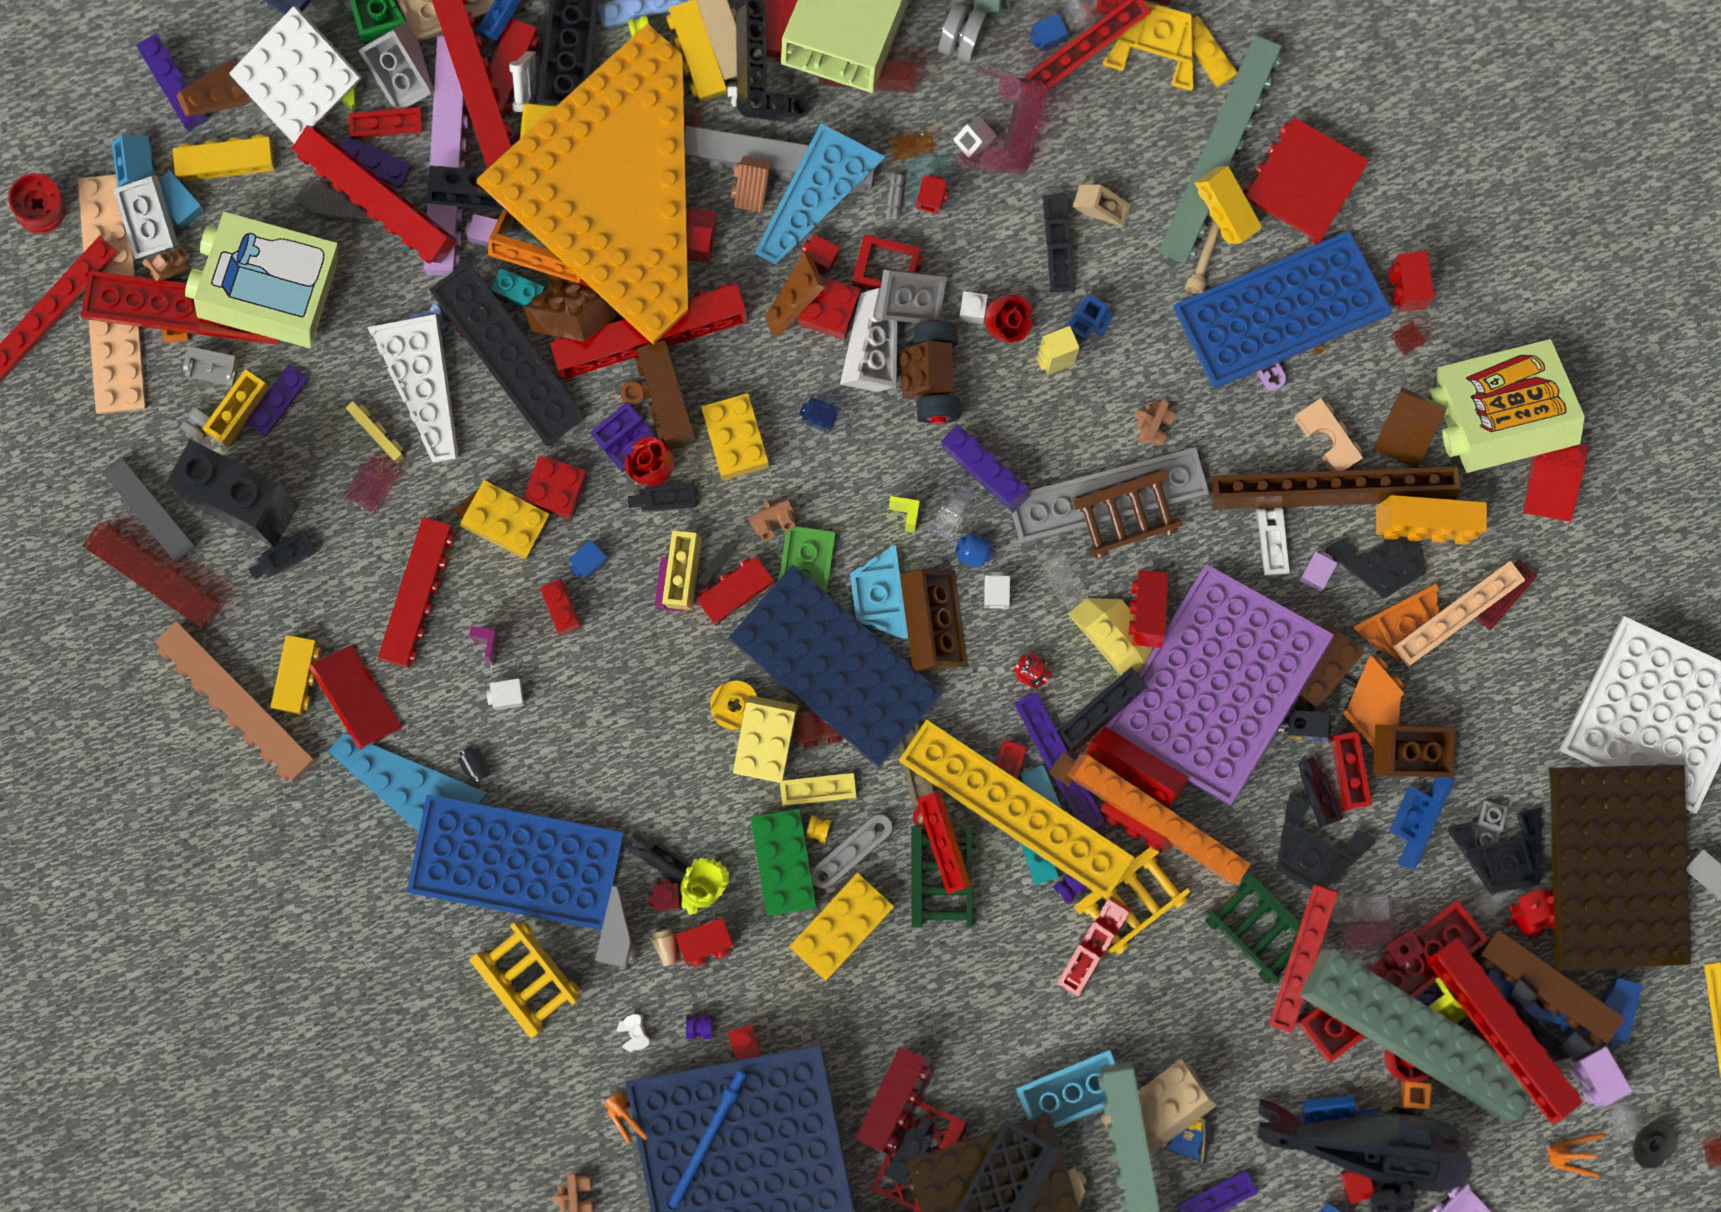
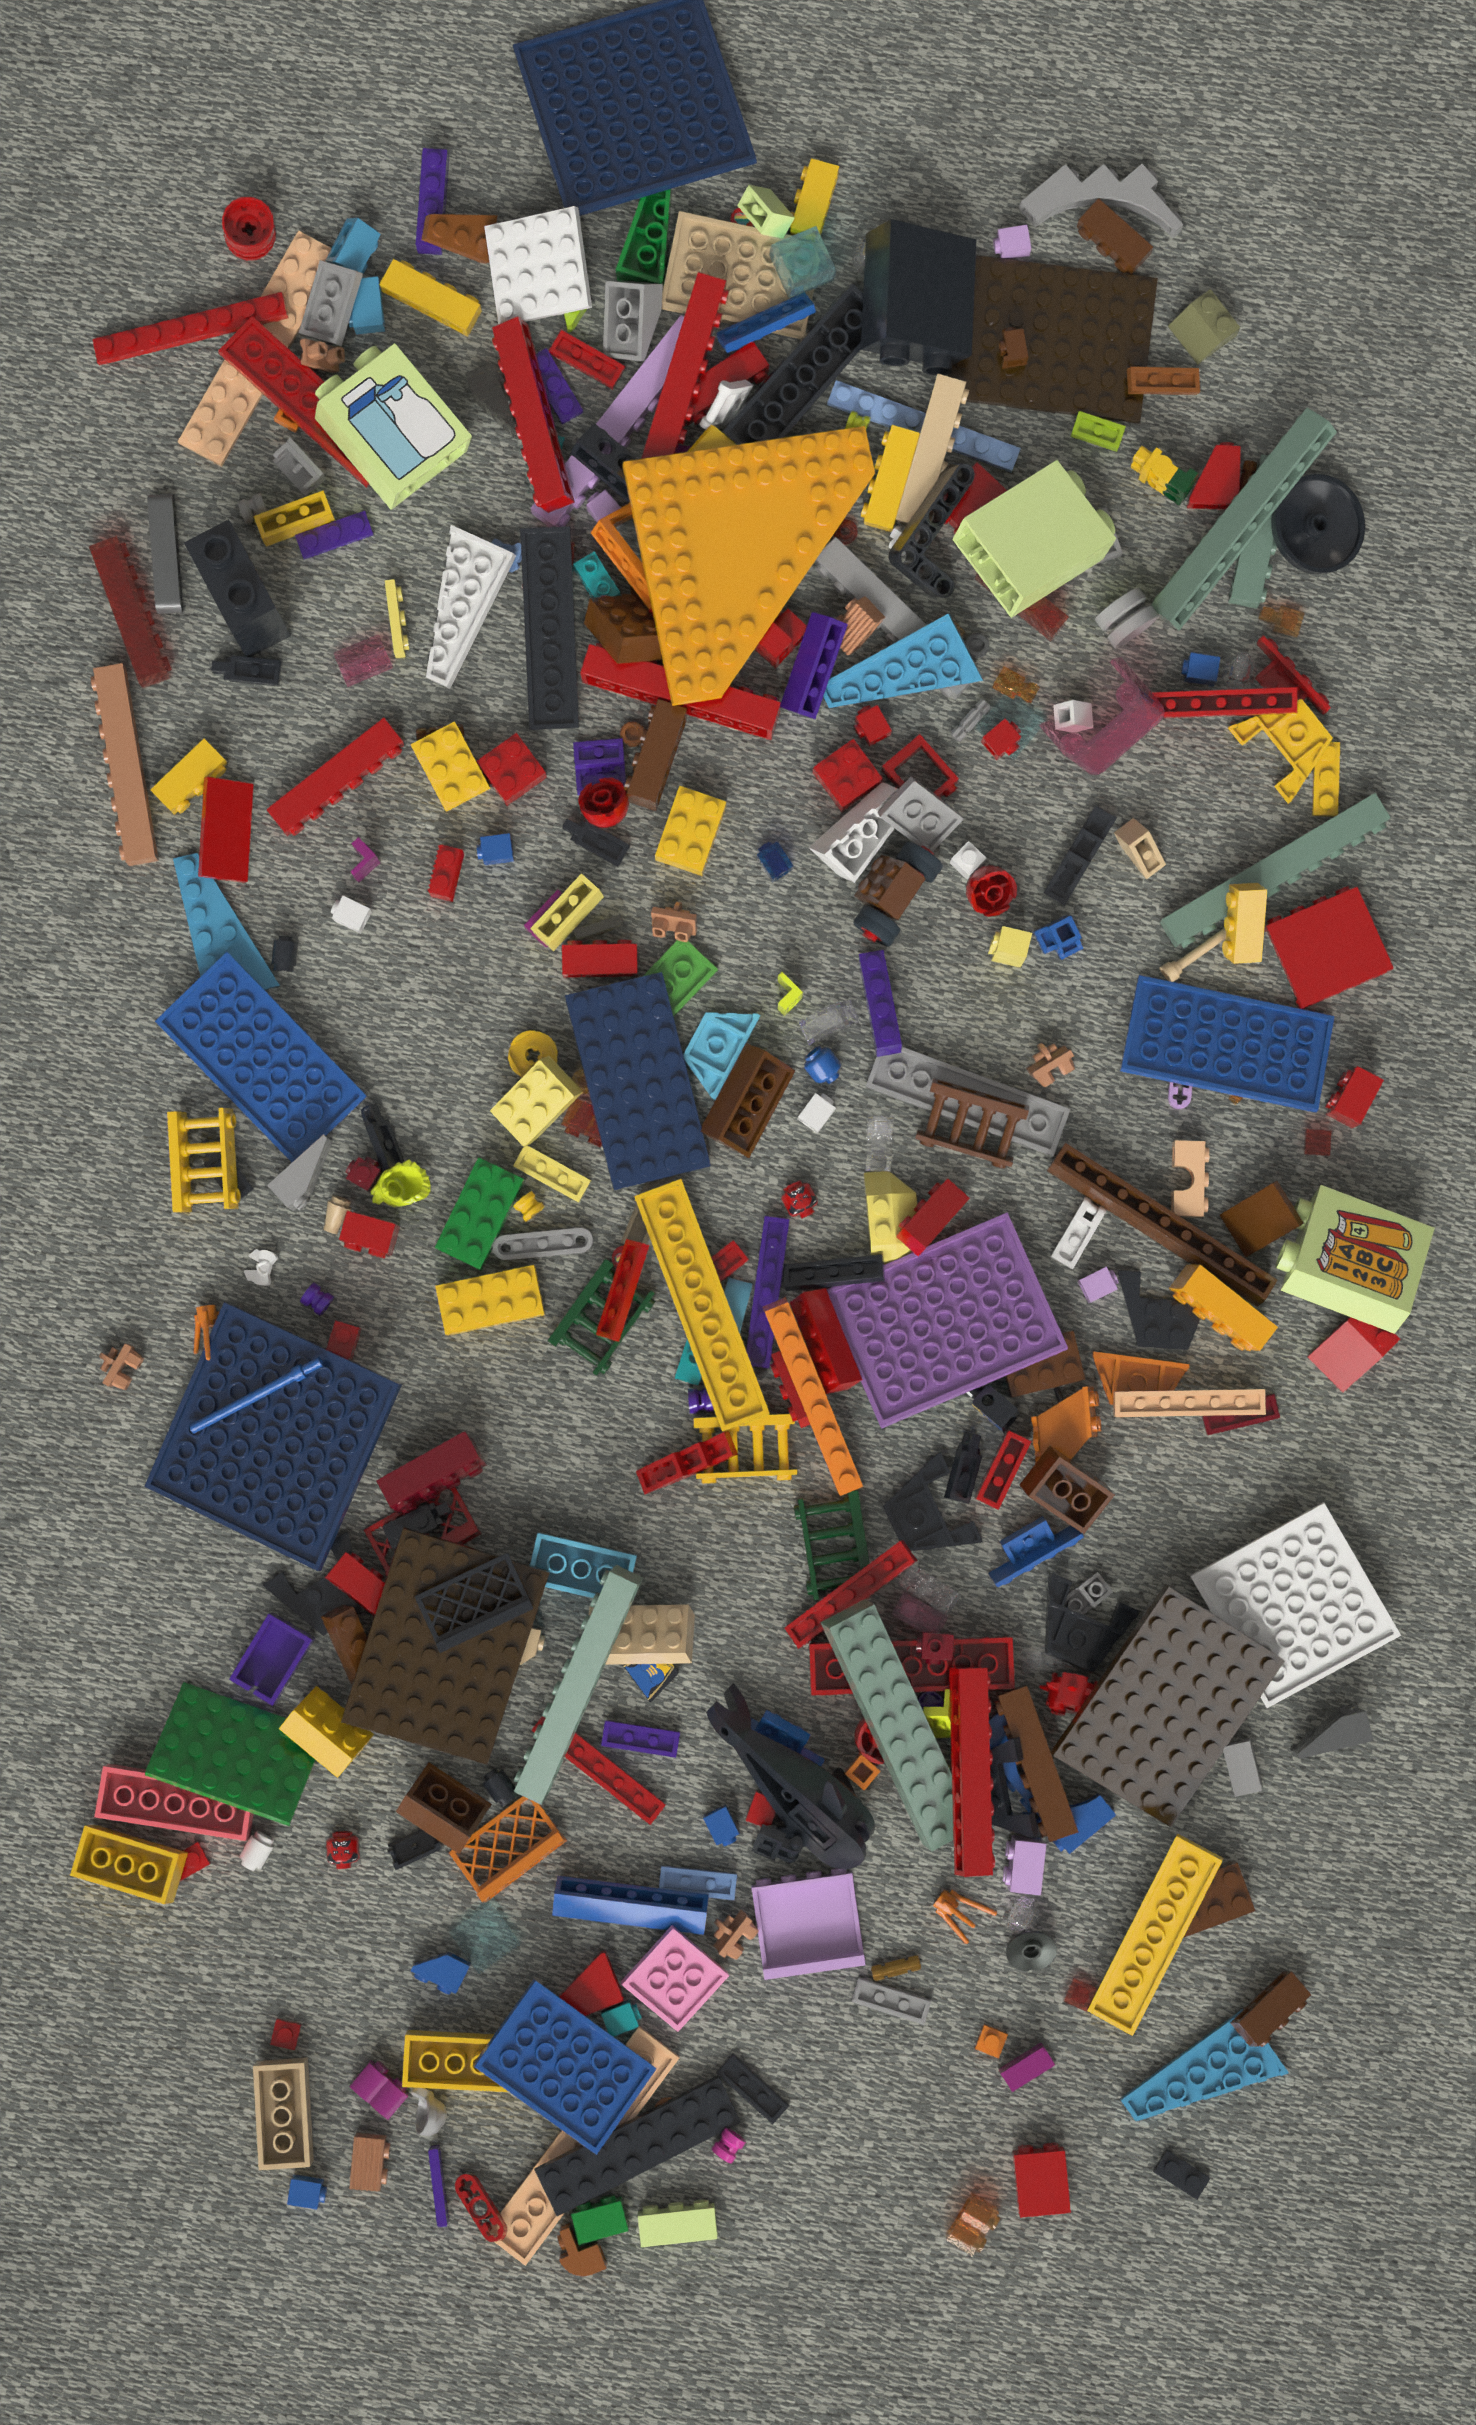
camera: 35 degrees right, 5 degrees up
(740, 238) = (813, 665): none -> dark purple brick
(795, 295) = (825, 746): dark orange wing -> none
(1062, 768) = (764, 1297): clear orange plate -> none

